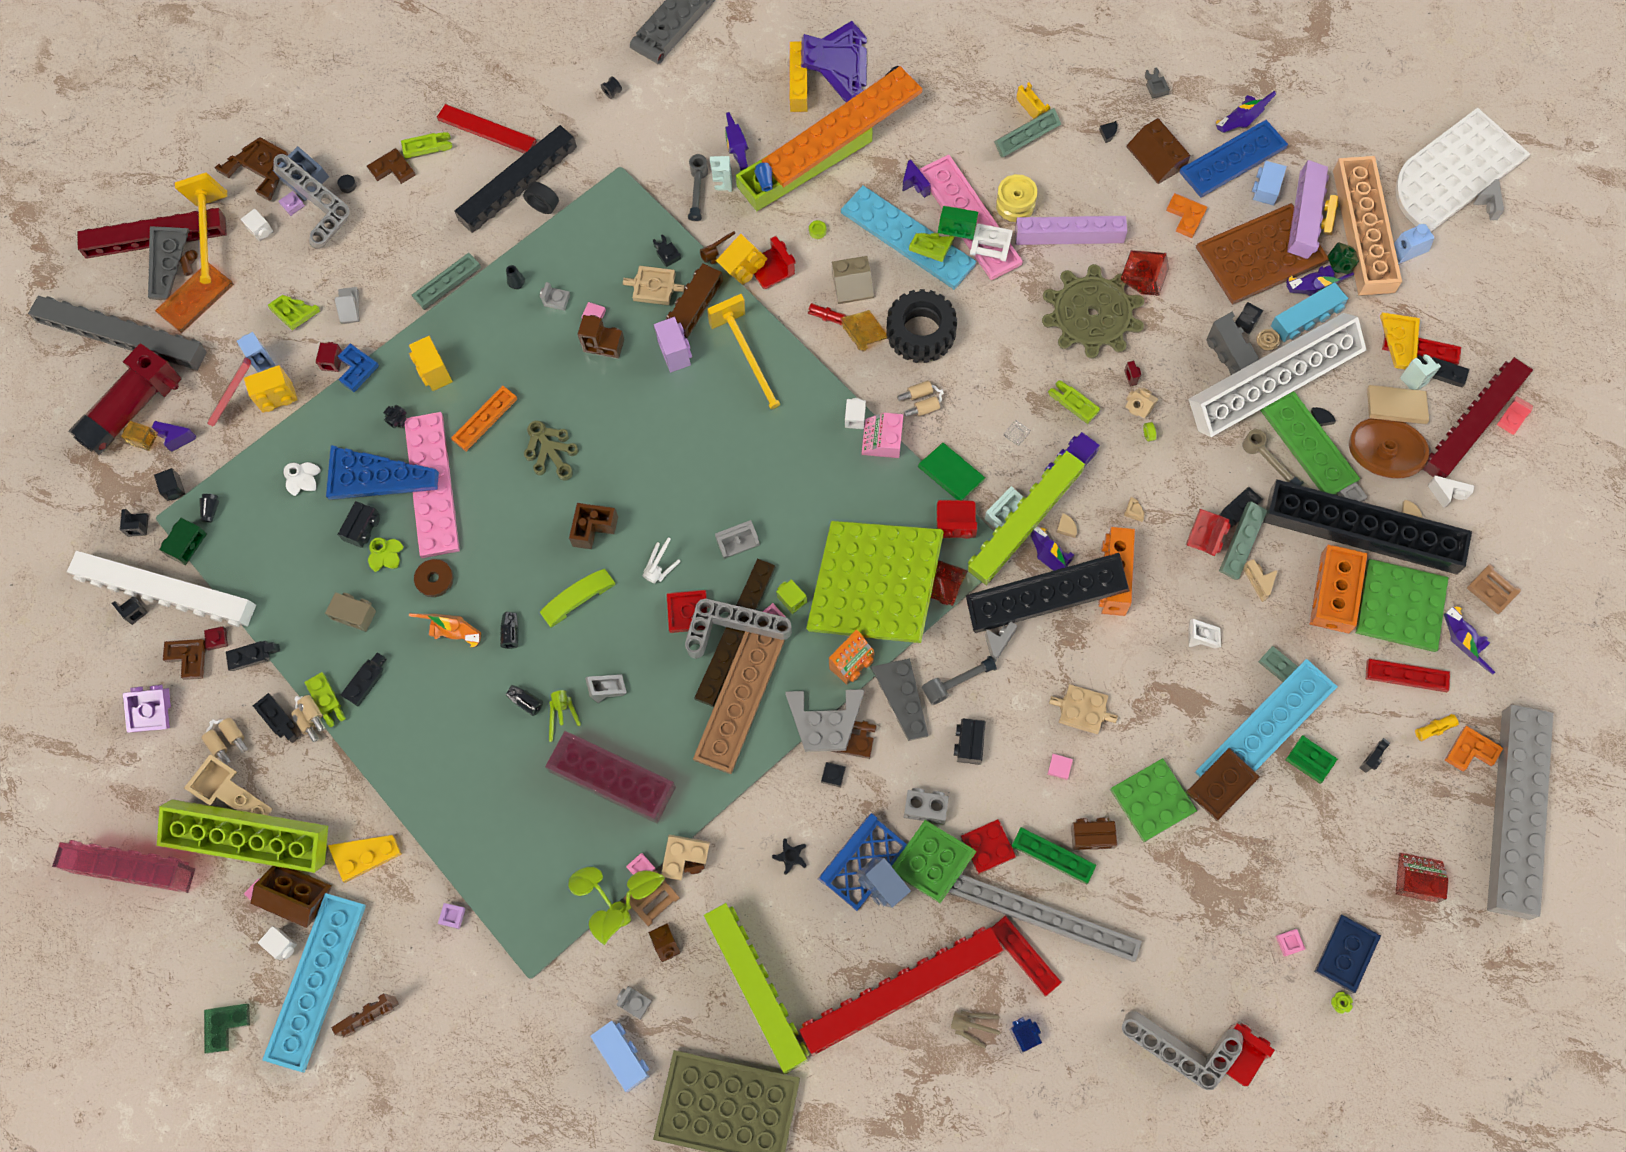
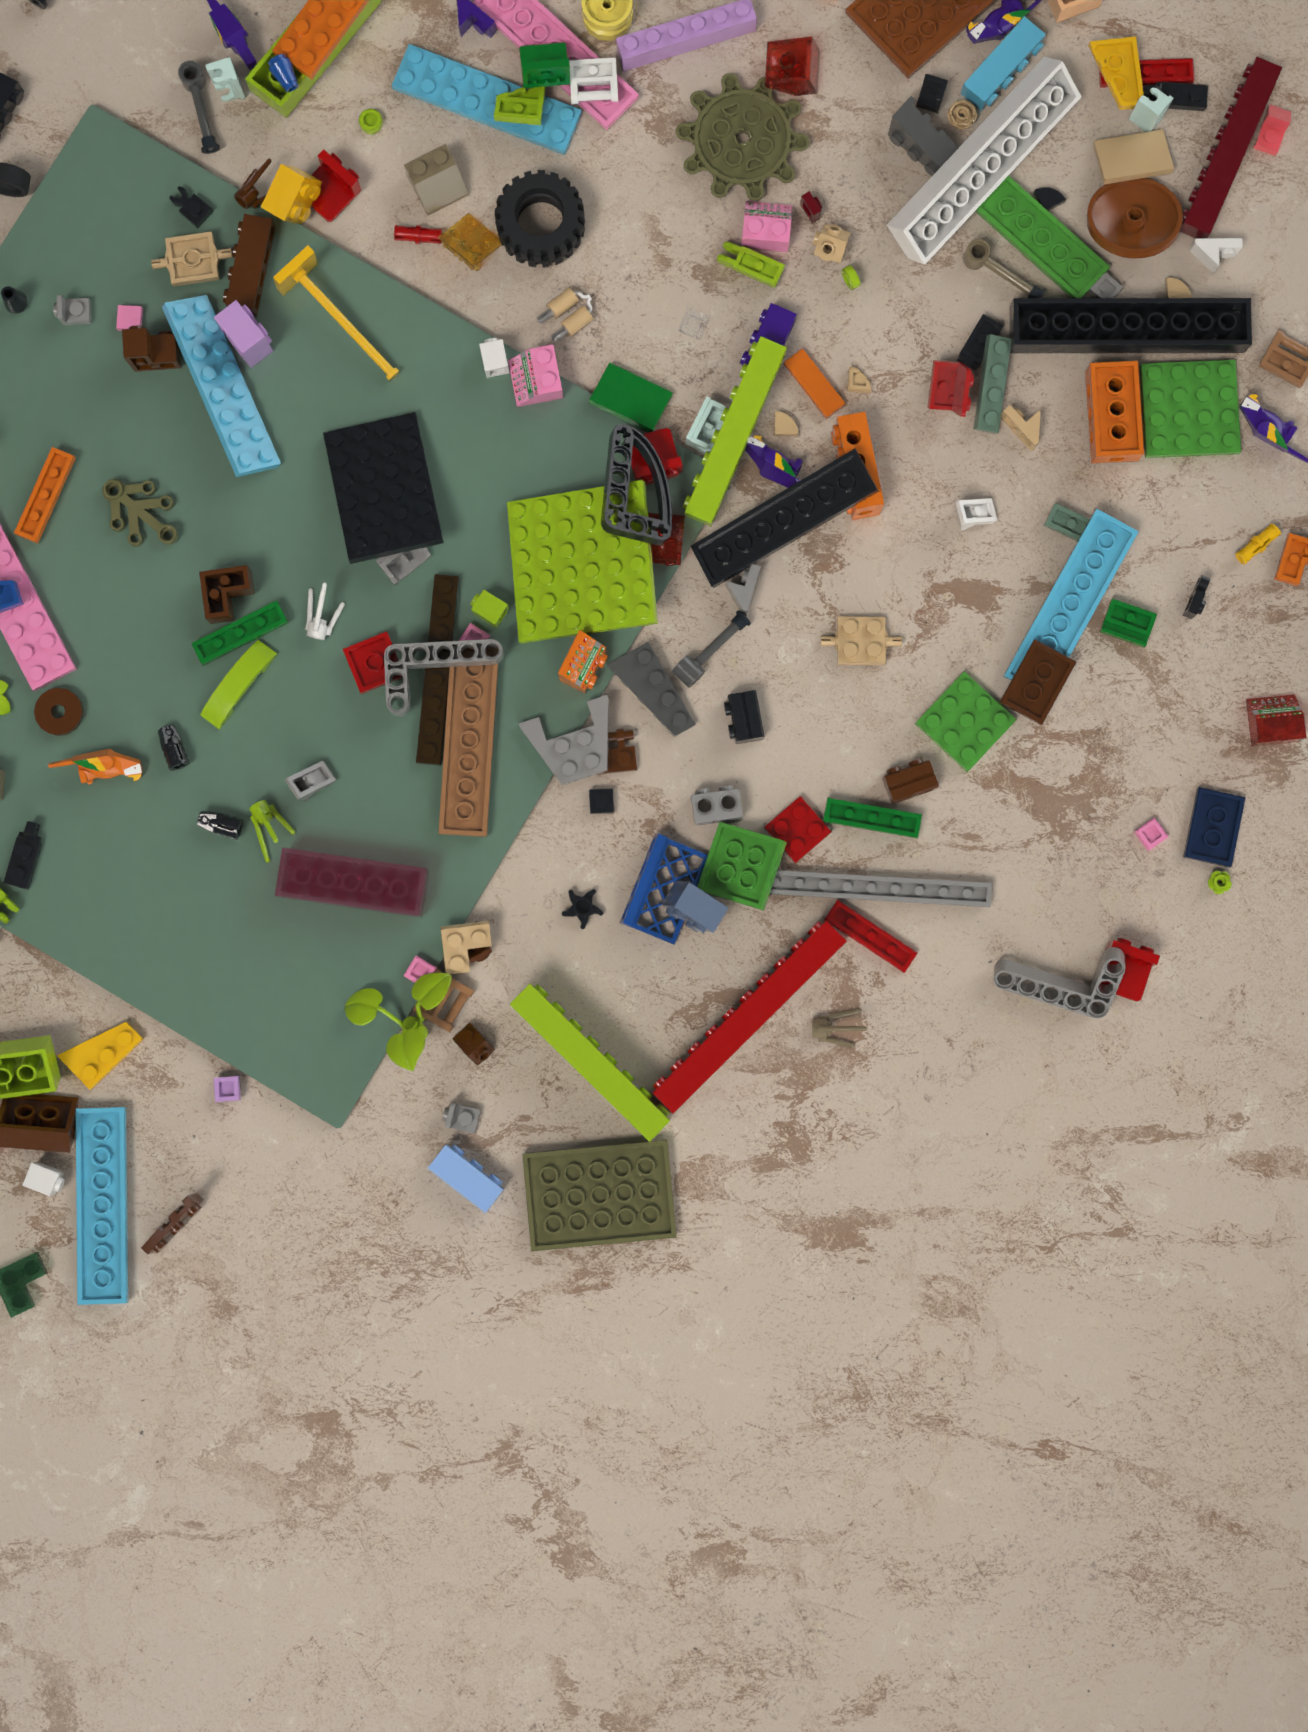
camera: 20 degrees left, 15 degrees up
(592, 559) = (240, 633): none -> green plate
(643, 378) = (221, 385): none -> medium azure plate
(738, 483) = (383, 488): none -> black plate
(917, 552) = (623, 518): none -> black beam
(1025, 1034) = (894, 1019): clear blue brick -> none
(1060, 766) = (852, 715): bright pink tile -> none
(1093, 379) = (767, 226): none -> bright pink slope
(1099, 502) = (814, 383): none -> orange tile
(1407, 675) = (1213, 491): red tile -> none

